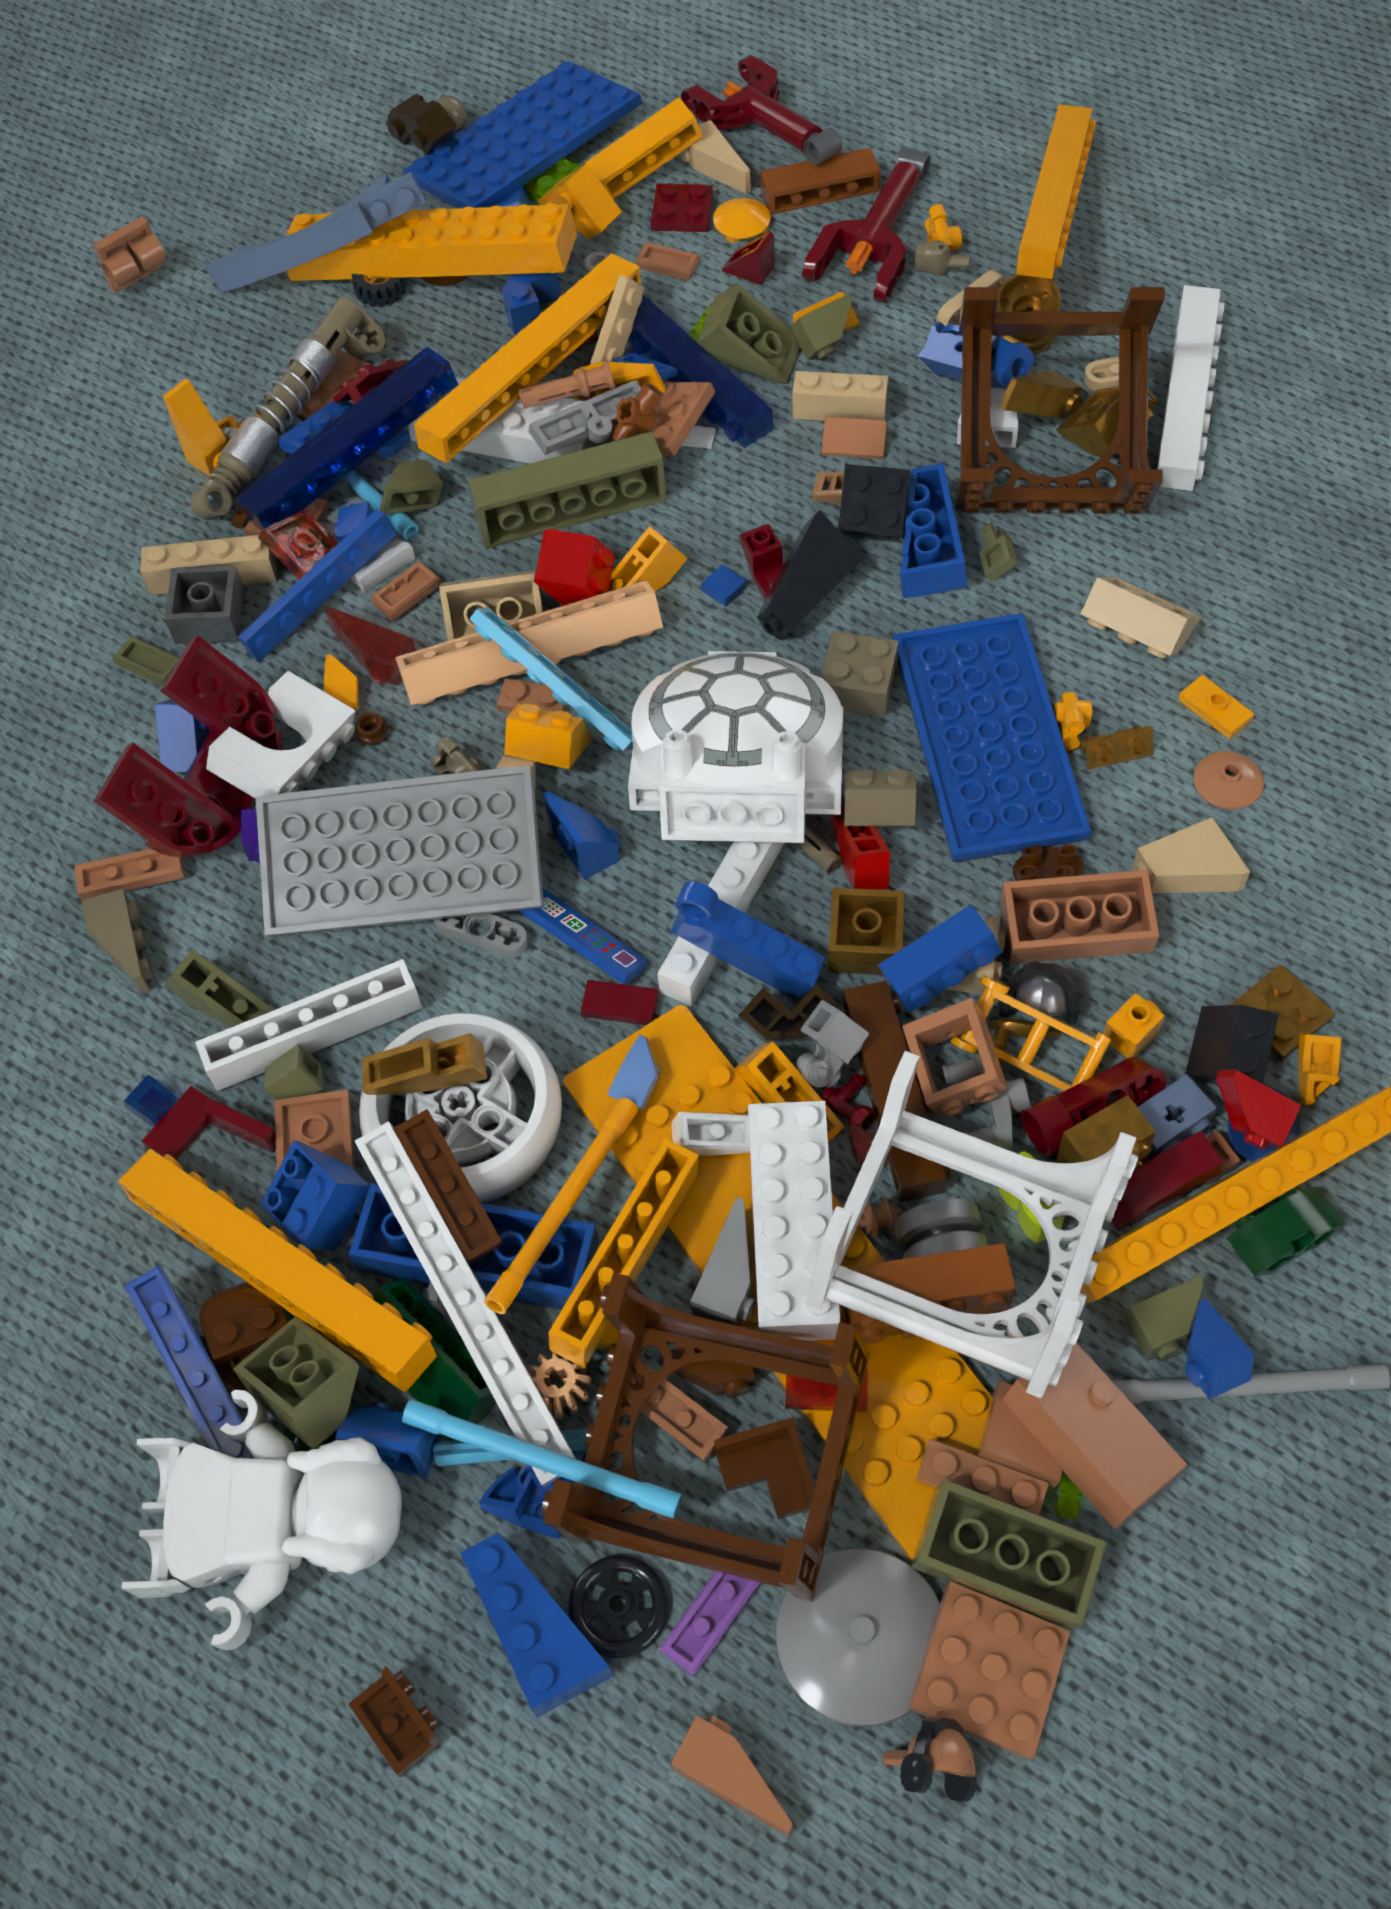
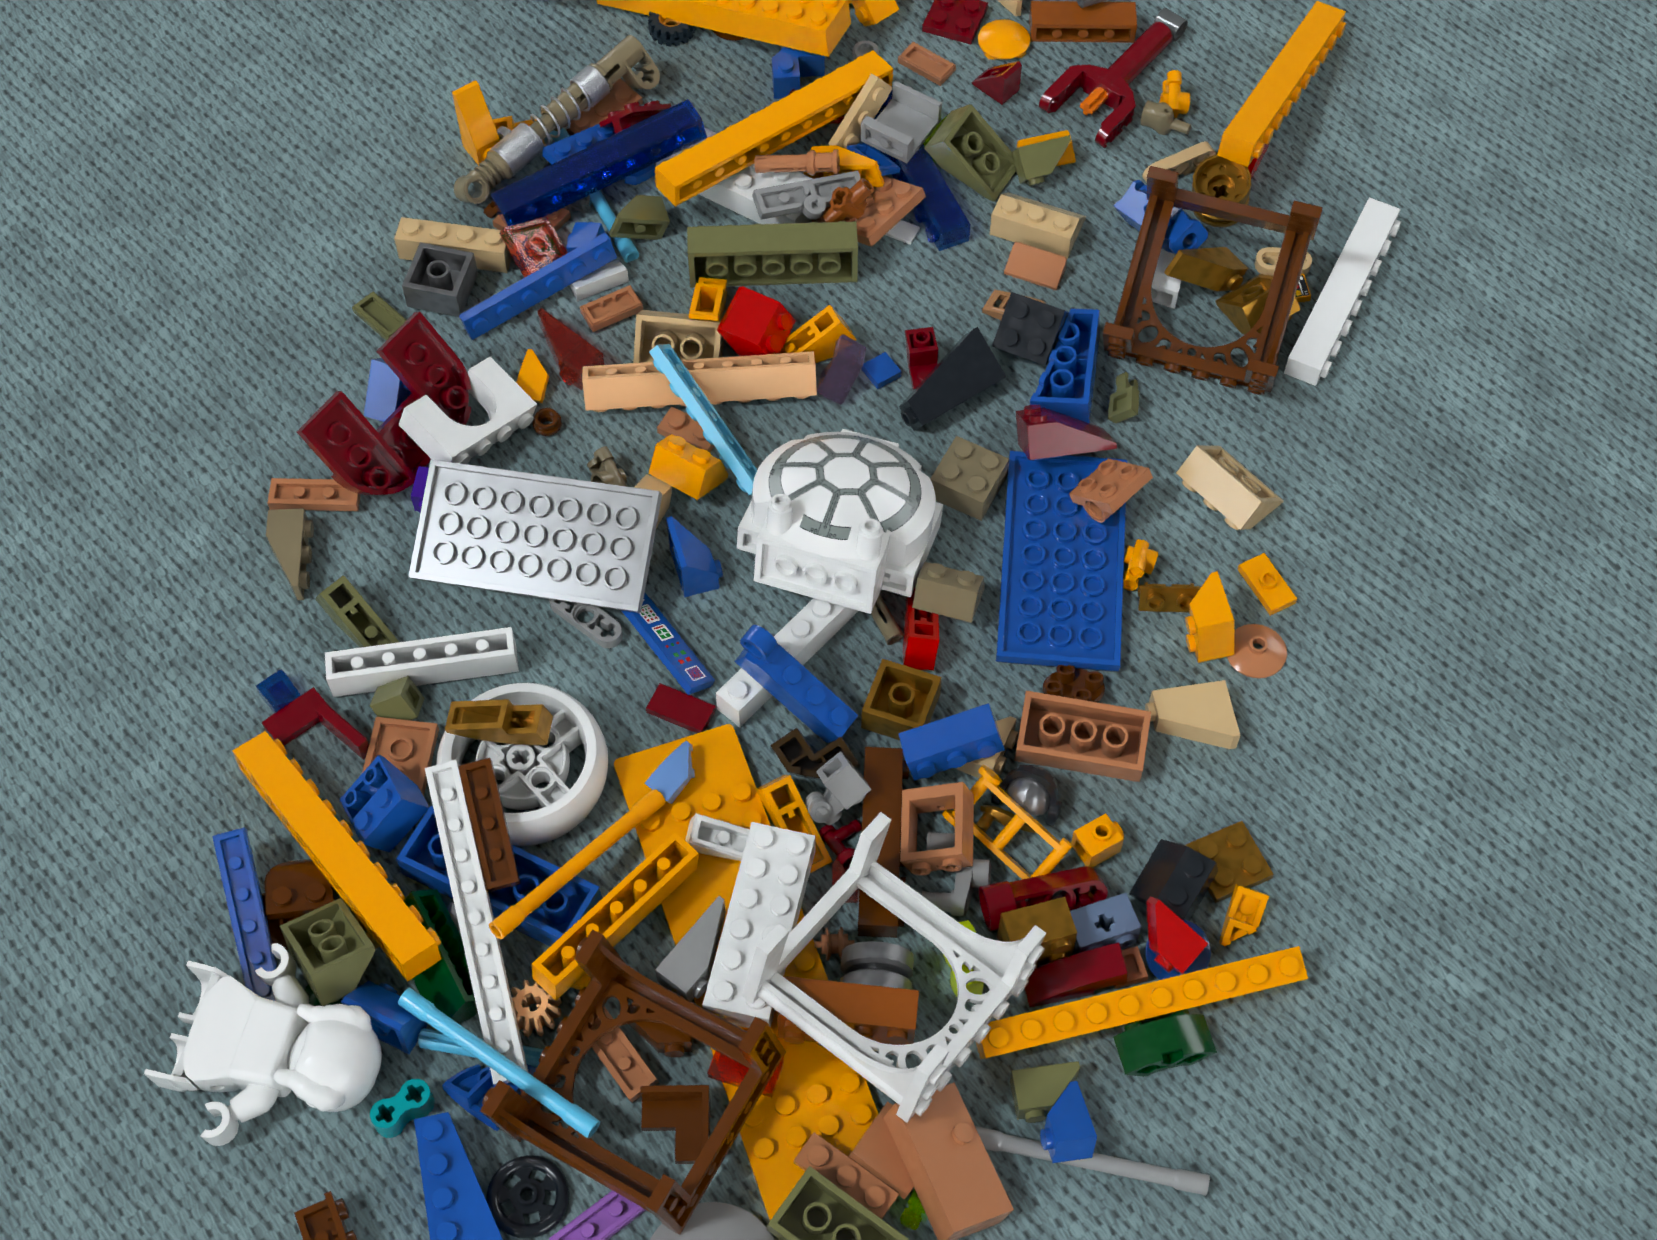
camera: 10 degrees right, 0 degrees up
(440, 1543) = (402, 1108): none -> teal axle
(513, 553) = (708, 299): none -> light orange slope
(666, 321) = (902, 123): none -> light grey panel
(683, 596) = (842, 370): none -> clear purple slope
(931, 606) = (1053, 434): none -> slope
(1018, 645) = (1109, 487): none -> nougat plate
(1177, 759) = (1210, 622): none -> light orange slope

